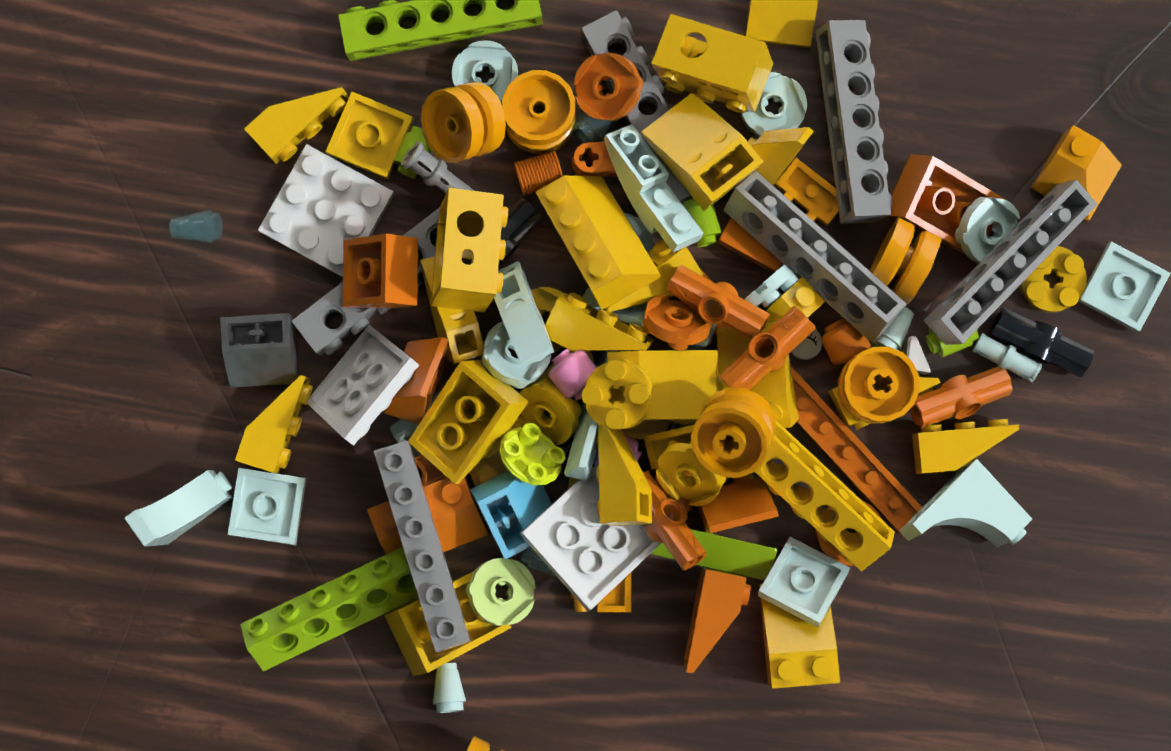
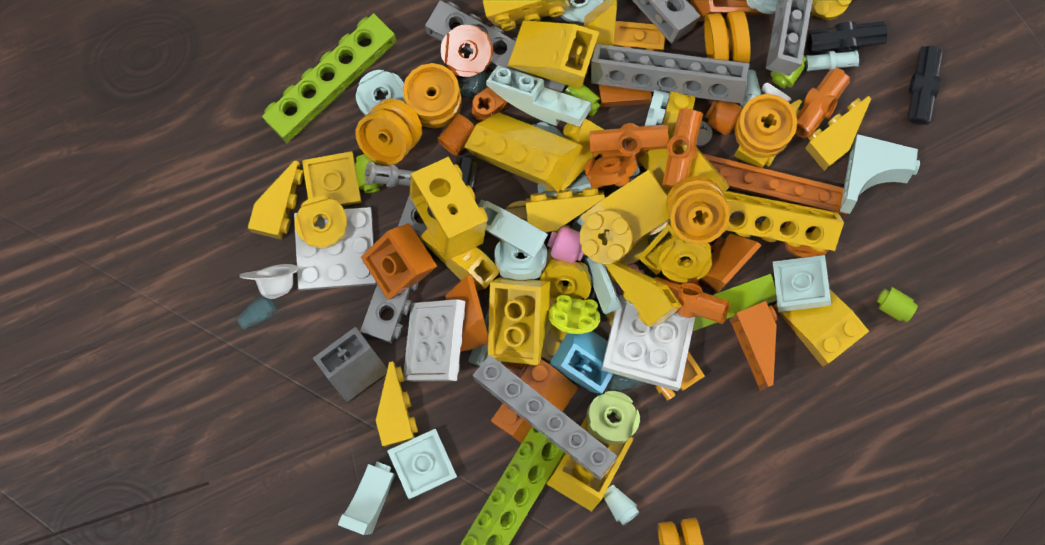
camera: 30 degrees left, 5 degrees down
(233, 202) = (273, 280): none -> white piece
(318, 157) = (308, 215): none -> yellow plate
(893, 672) = (896, 304): none -> lime brick
(1091, 452) = (924, 85): none -> black piece

